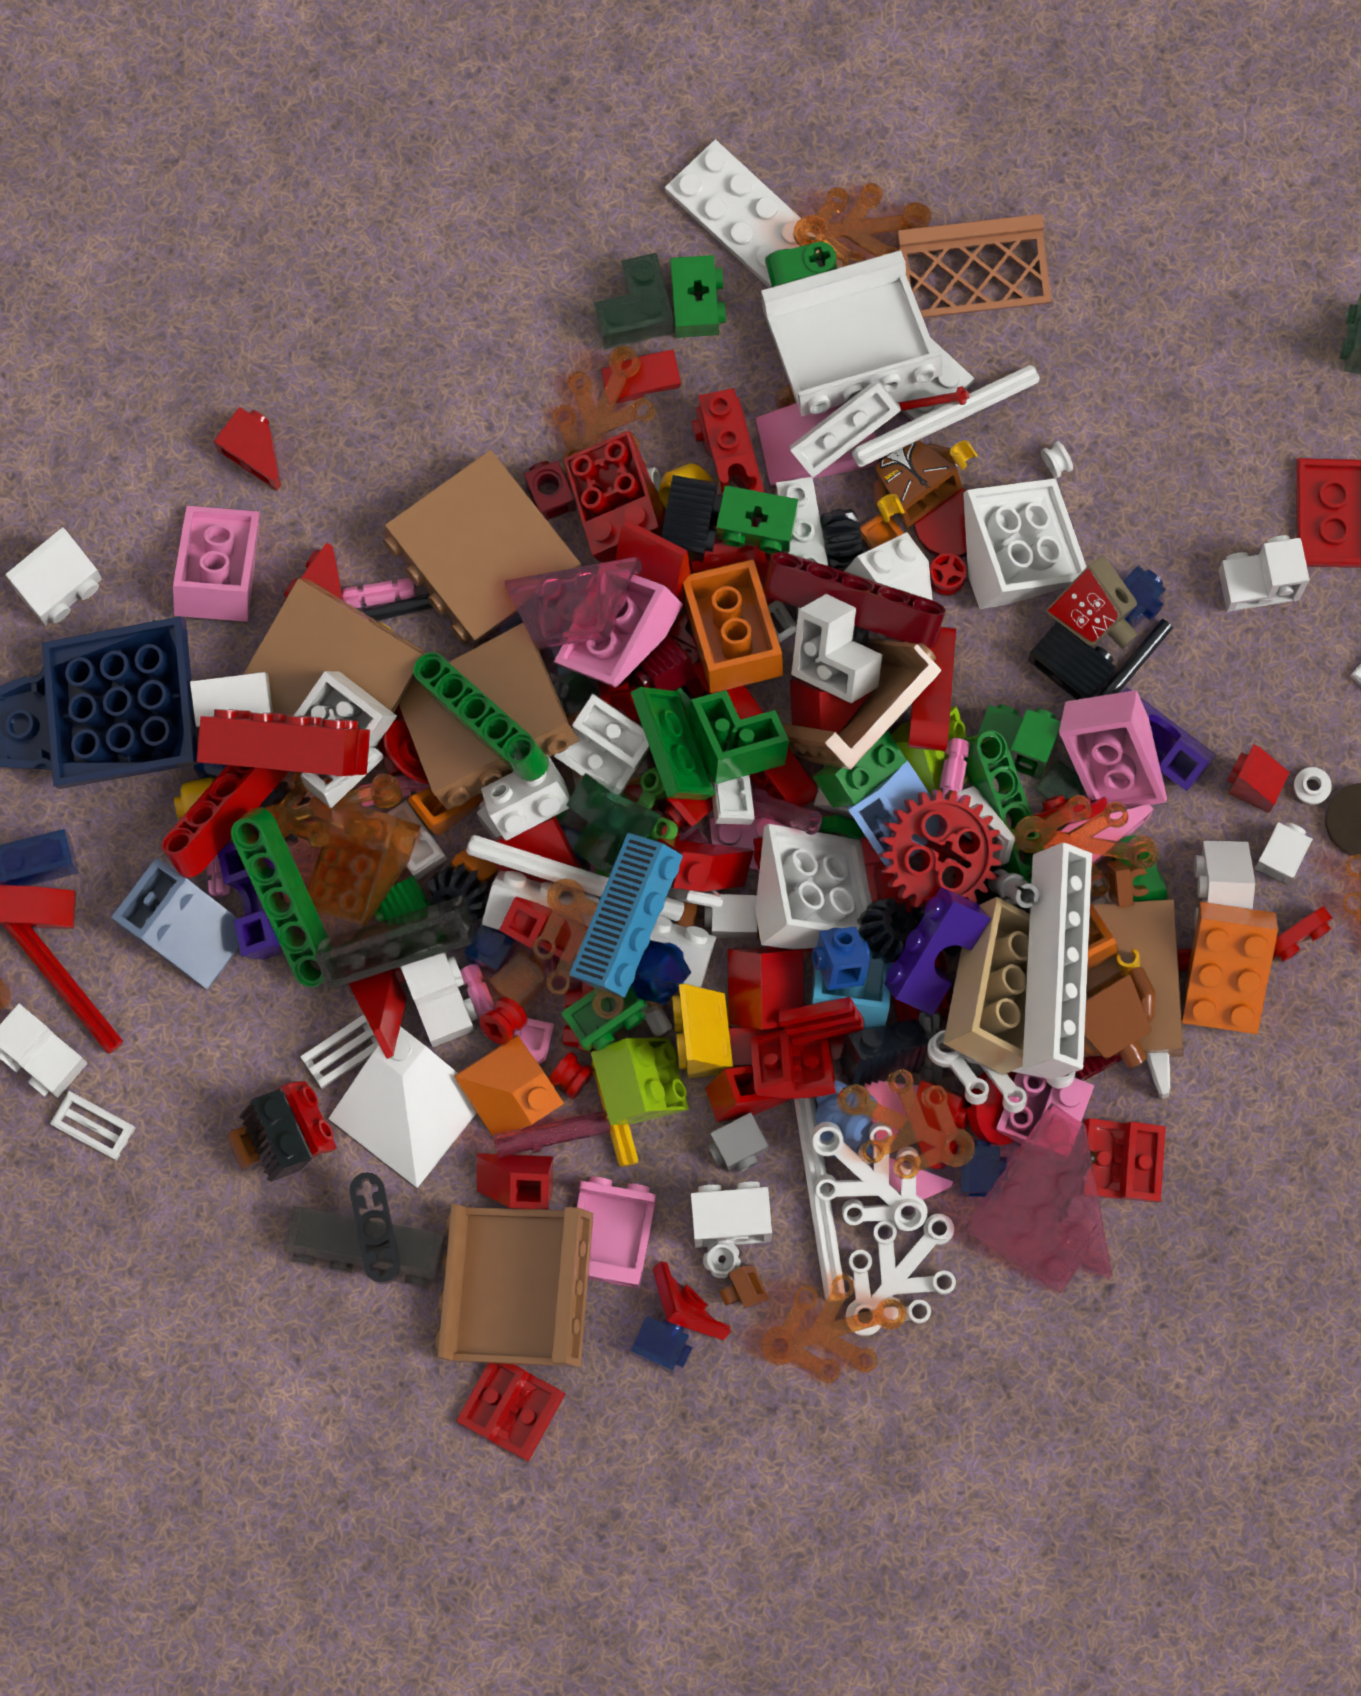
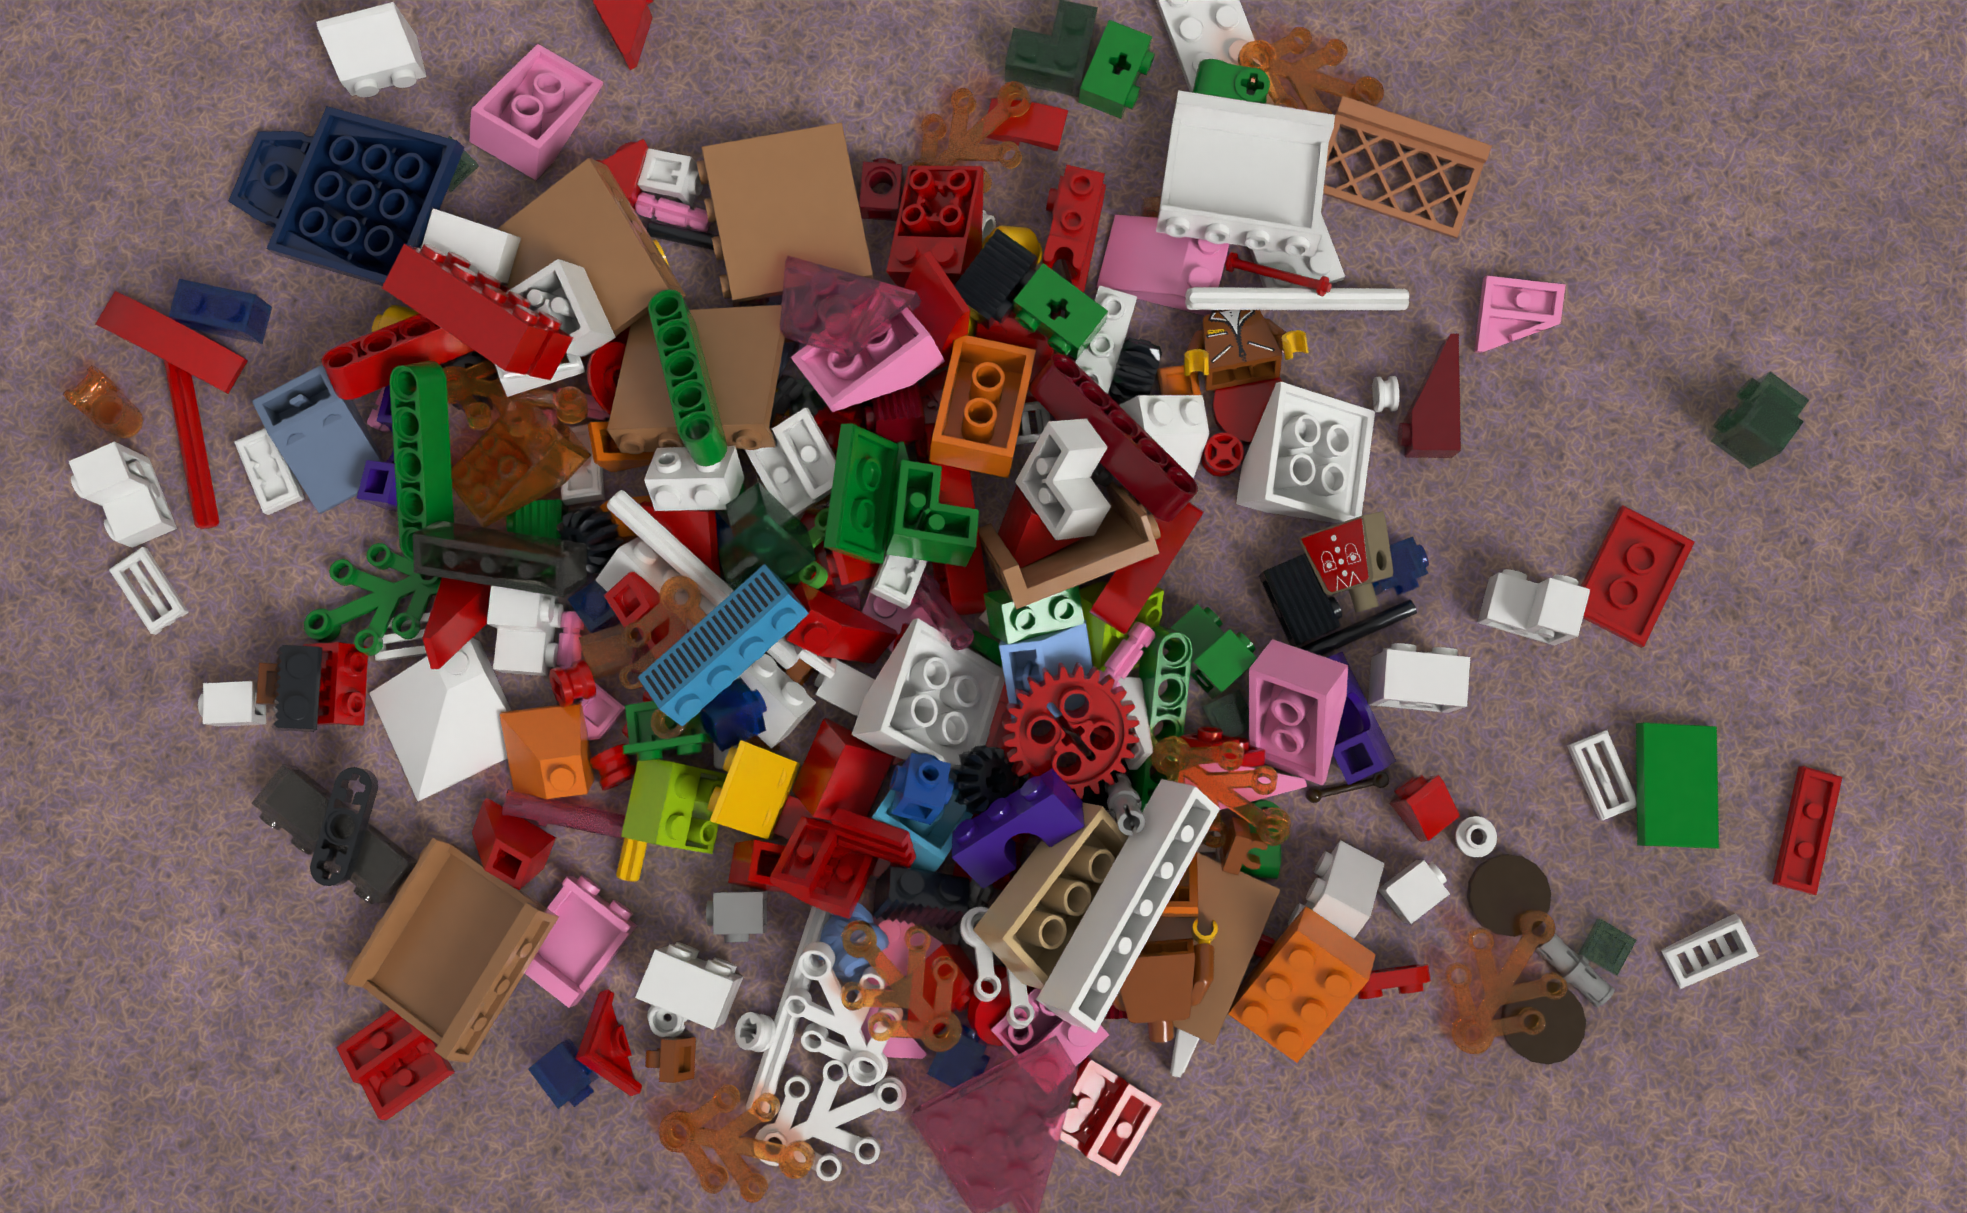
camera: 25 degrees right, 5 degrees up
(145, 974) = (268, 472): none -> white plate
(219, 1181) = (231, 704): none -> white brick
(299, 1031) = (383, 599): none -> green plant
(363, 562) = (670, 175): none -> white bracket
(791, 1233) = (745, 1032): none -> white bush
(845, 428) = (1191, 263): white plate -> none
(1106, 460) = (1433, 419): none -> dark red slope
(1129, 339) = (1516, 310): none -> bright pink wing
(1201, 678) = (1419, 679): none -> white brick
(1211, 779) = (1379, 780): none -> dark brown hinge

